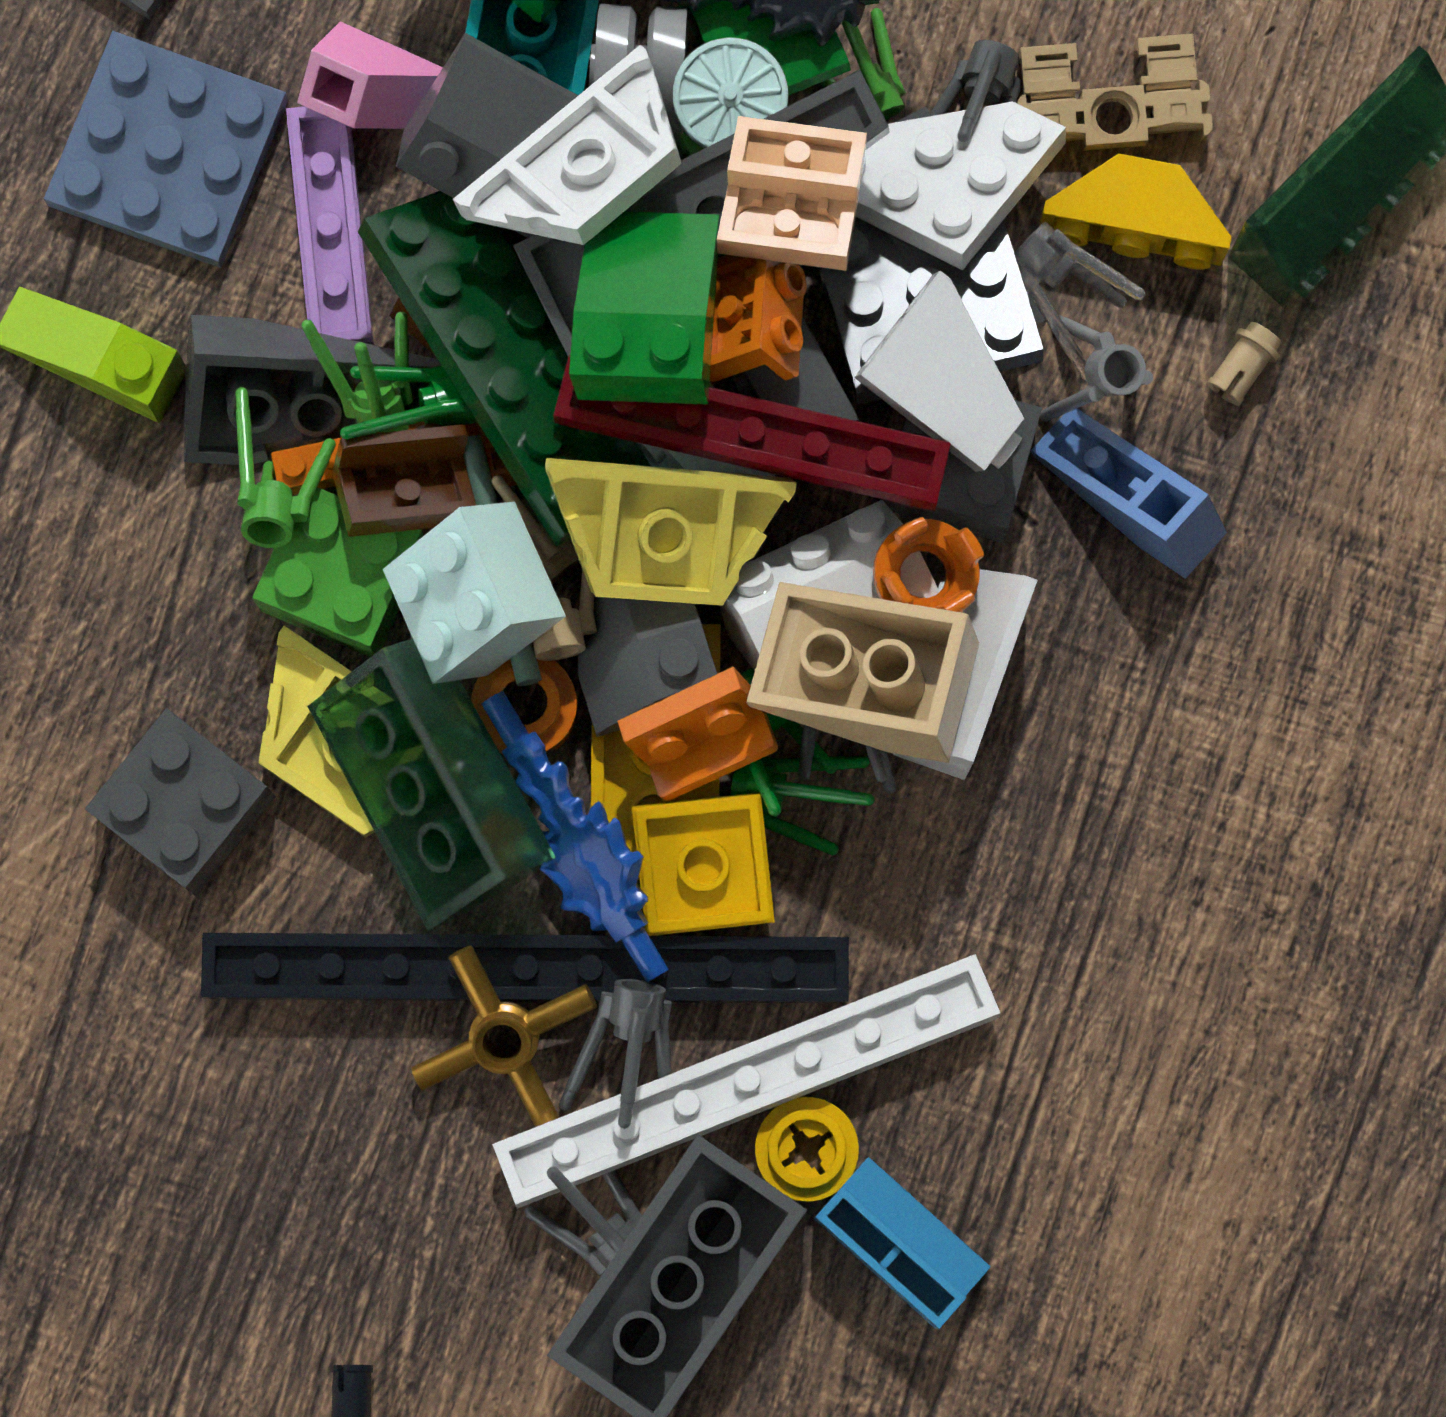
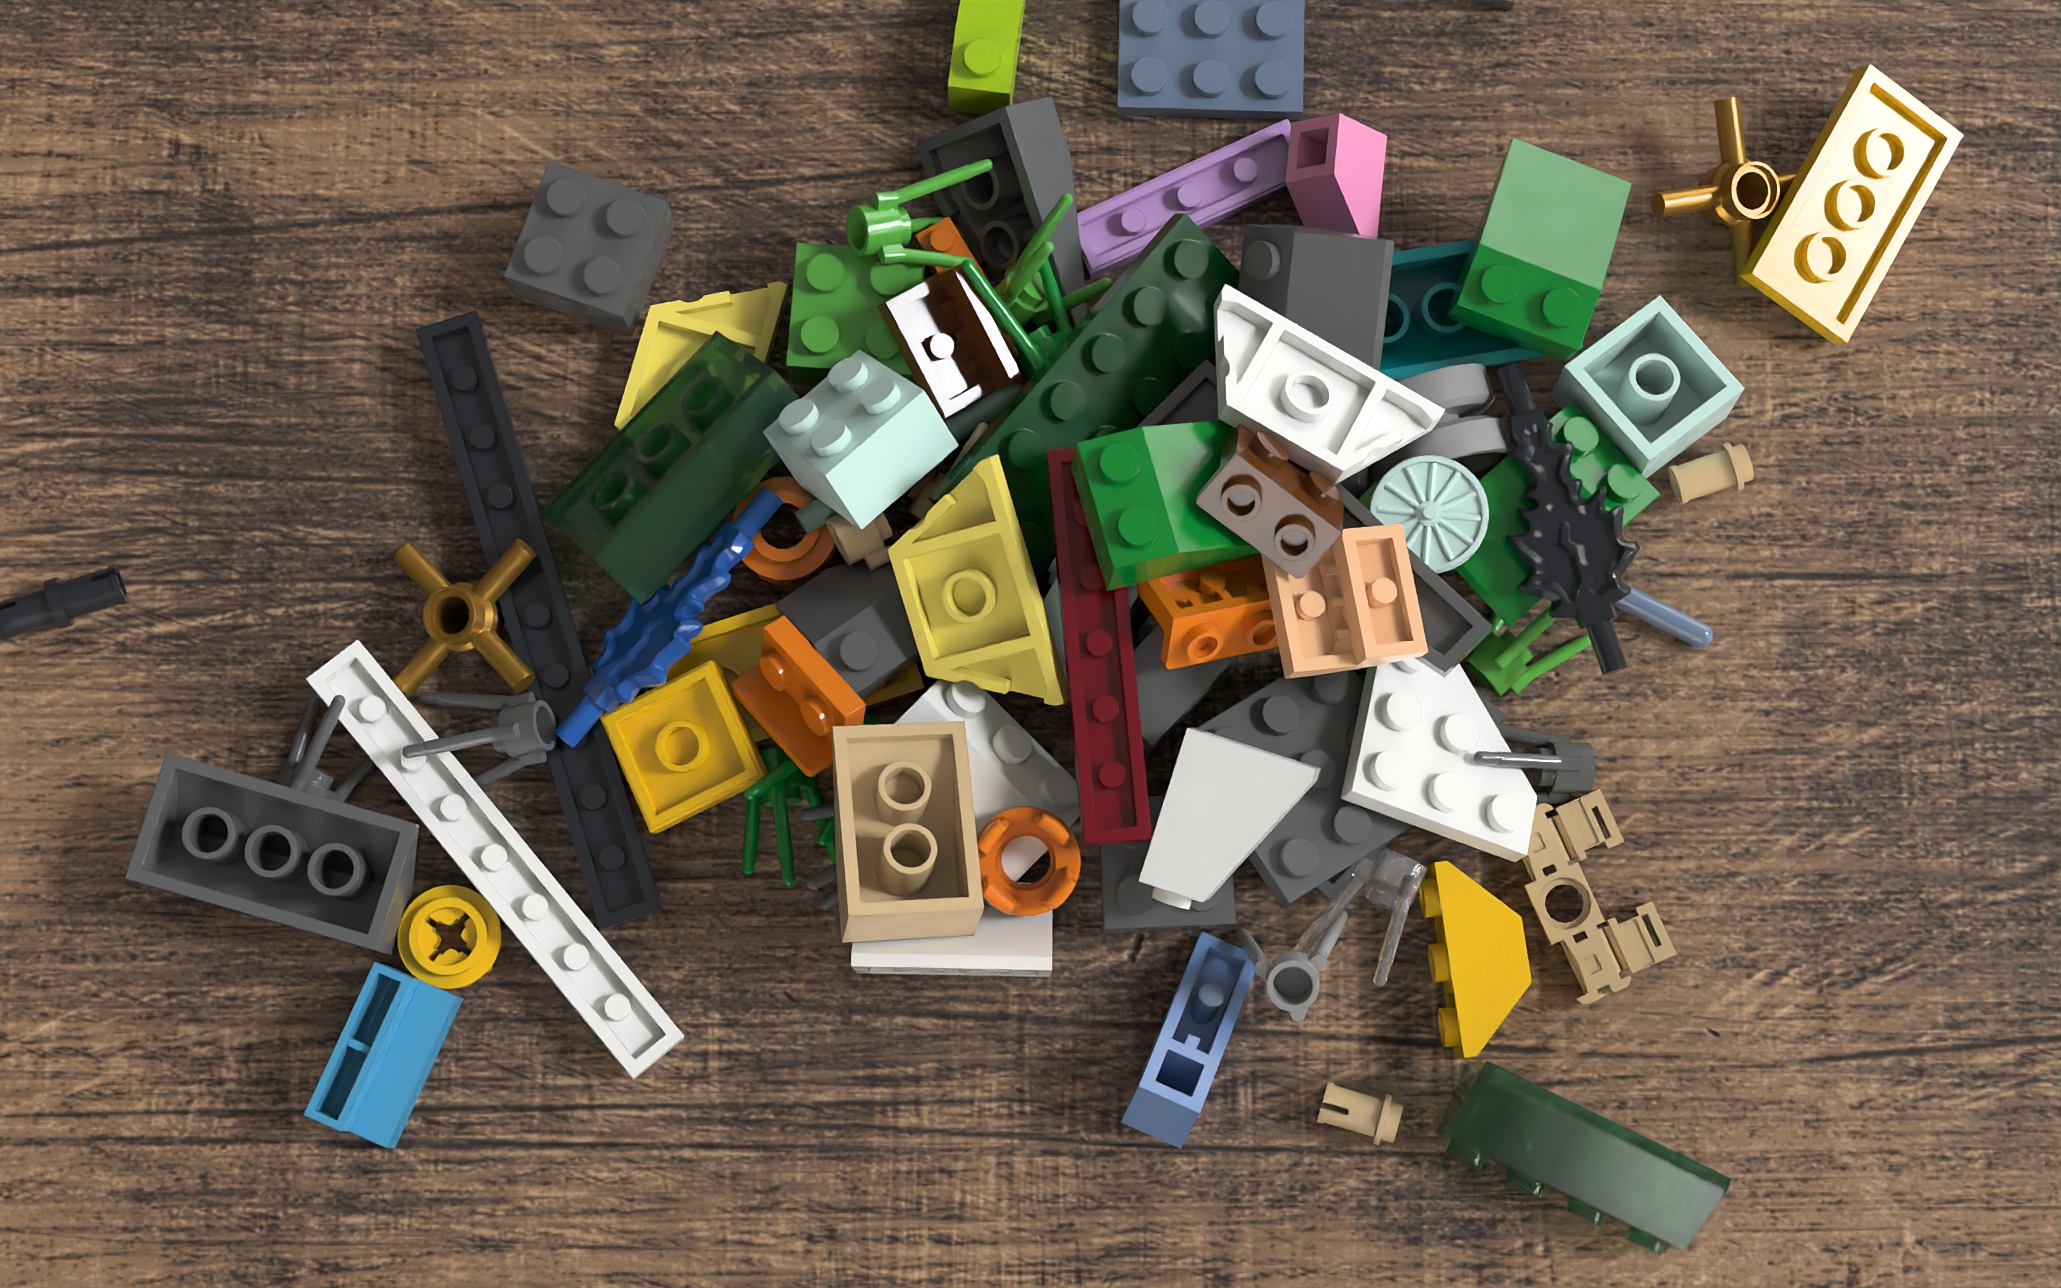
camera: 70 degrees right, 0 degrees up
(684, 219) = (1273, 502): none -> bracket

